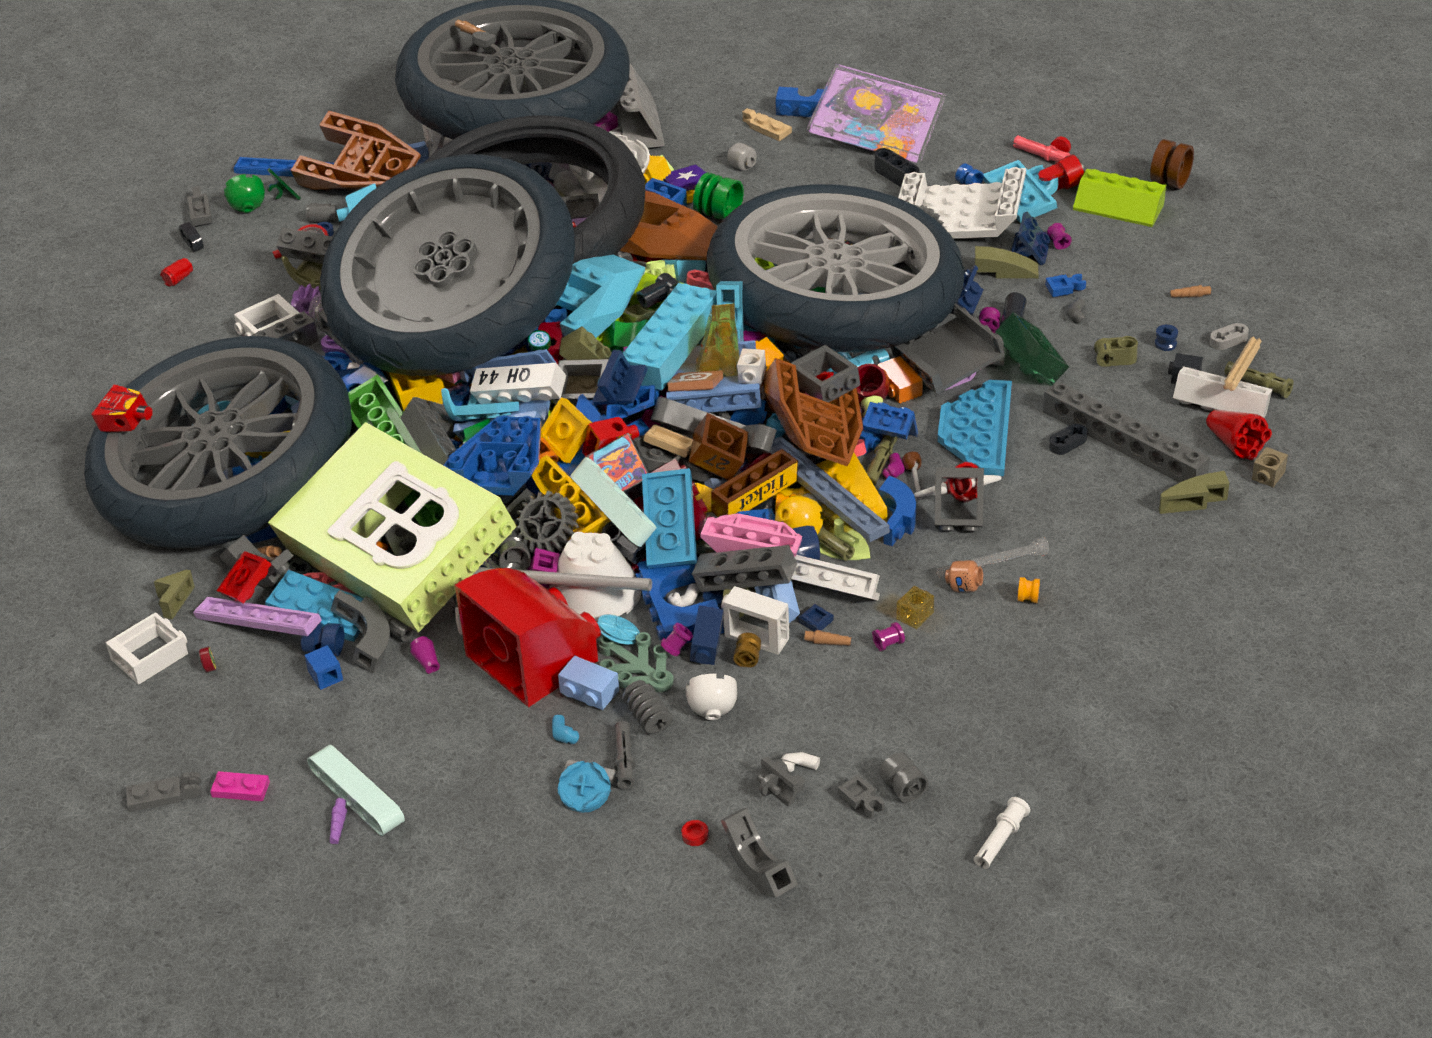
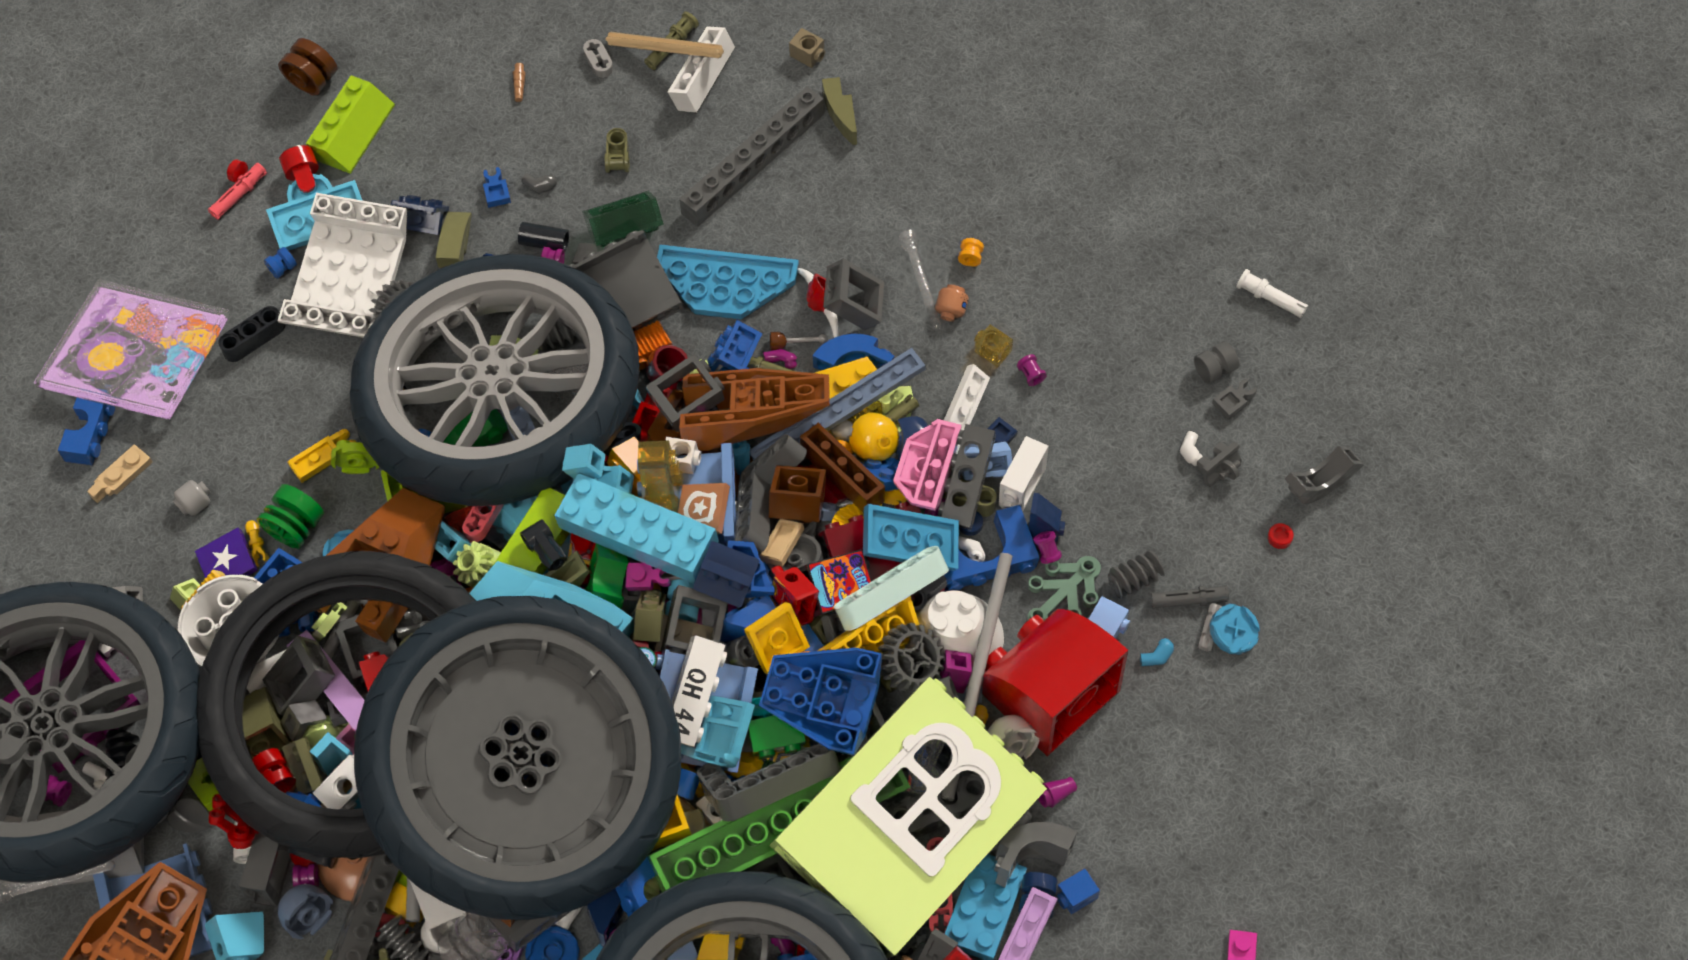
camera: 90 degrees left, 20 degrees up
(337, 820) = (1283, 855): medium lavender animal -> none
(357, 790) = (1246, 840): light aqua beam -> none
(618, 629) = (1021, 606): medium azure wheel -> none
(711, 696) = (1121, 512): white cylinder -> none
(747, 650) = (1052, 490): pearl gold wheel -> none
(821, 637) = (1028, 422): medium nougat animal -> none
(1057, 233) = (408, 186): magenta bush -> none
(1068, 439) = (744, 208): black beam -> none
(1166, 337) = (594, 113): dark blue wheel -> none
(1181, 360) = (654, 96): black brick -> none
(1240, 431) = (756, 64): red cone -> none

